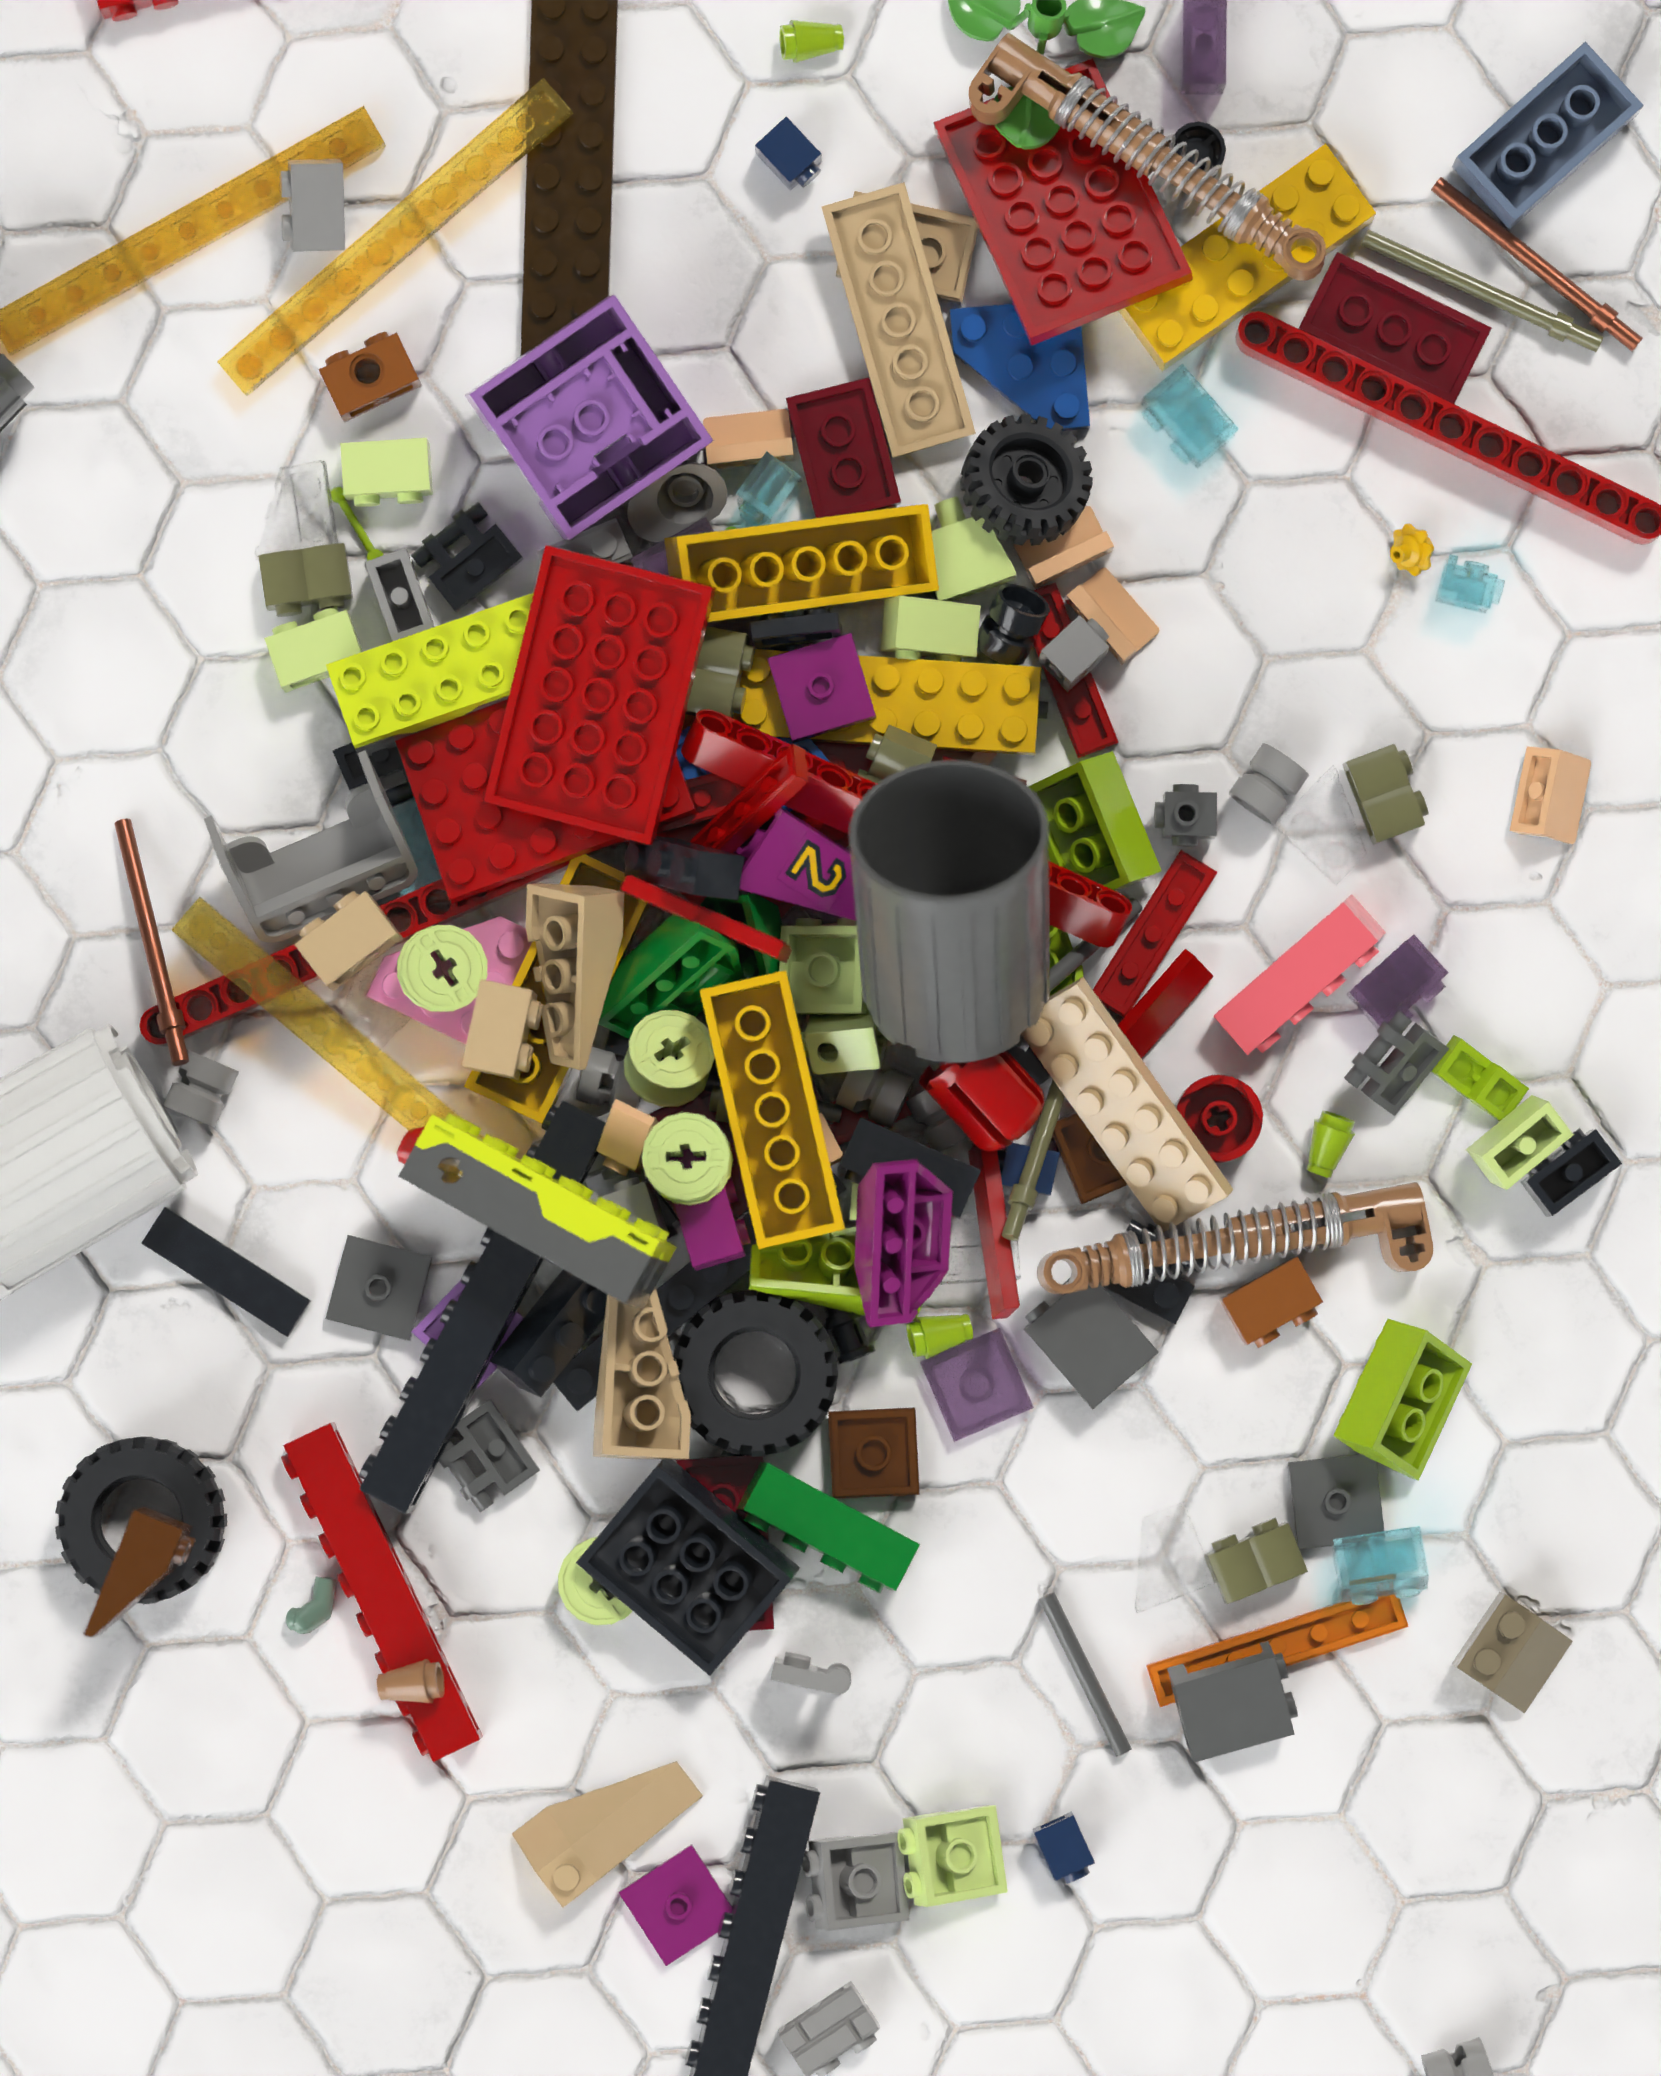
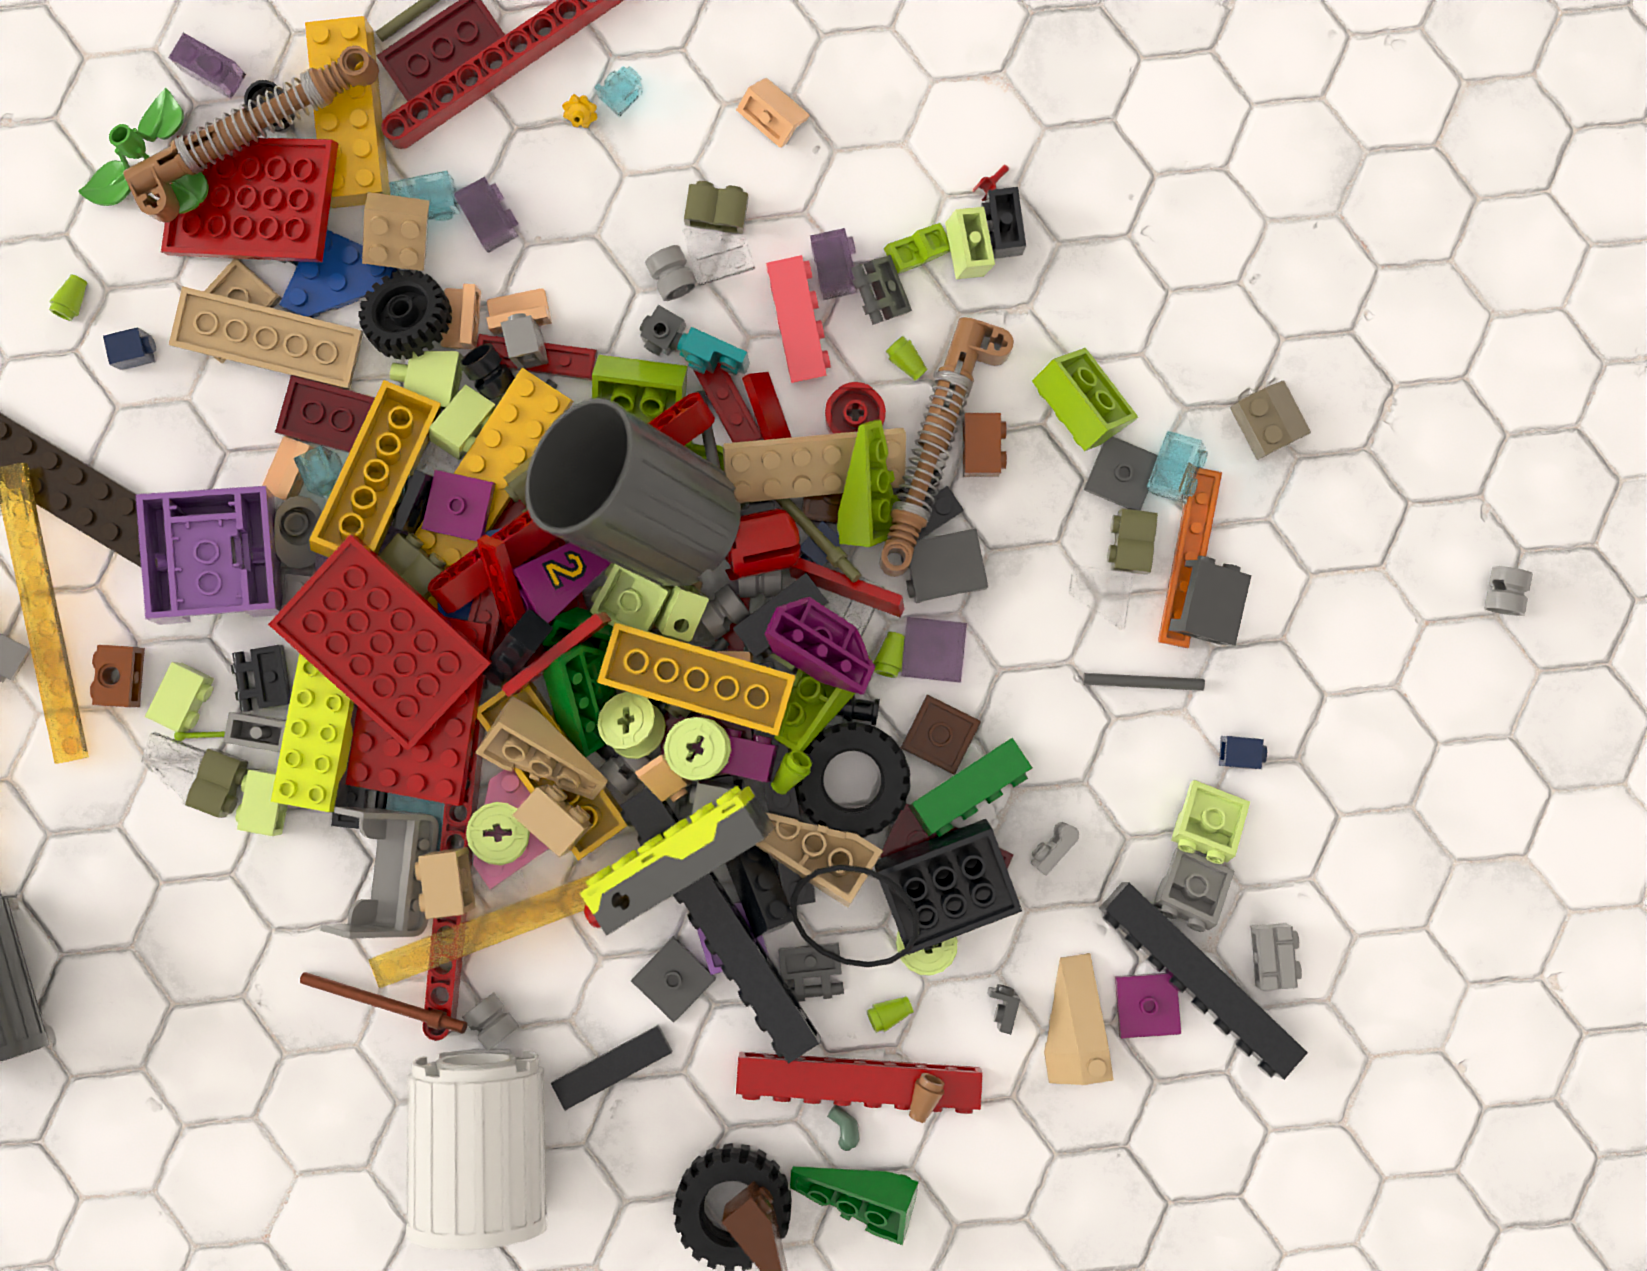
camera: 60 degrees left, 0 degrees up
(246, 1688) = (873, 1197): none -> green wedge
(487, 1582) = (889, 1013): none -> lime cone
(569, 1729) = (1005, 1013): none -> dark grey bracket
(656, 1482) = (893, 885): none -> black piece
(724, 1290) = (792, 770): none -> lime cone
(1123, 411) = (395, 231): none -> tan brick
(1126, 1190) = (868, 491): none -> lime wedge
(1189, 886) = (706, 352): none -> teal plate
(1213, 506) = (486, 215): none -> clear purple brick
(1613, 1124) = (990, 183): none -> red hand

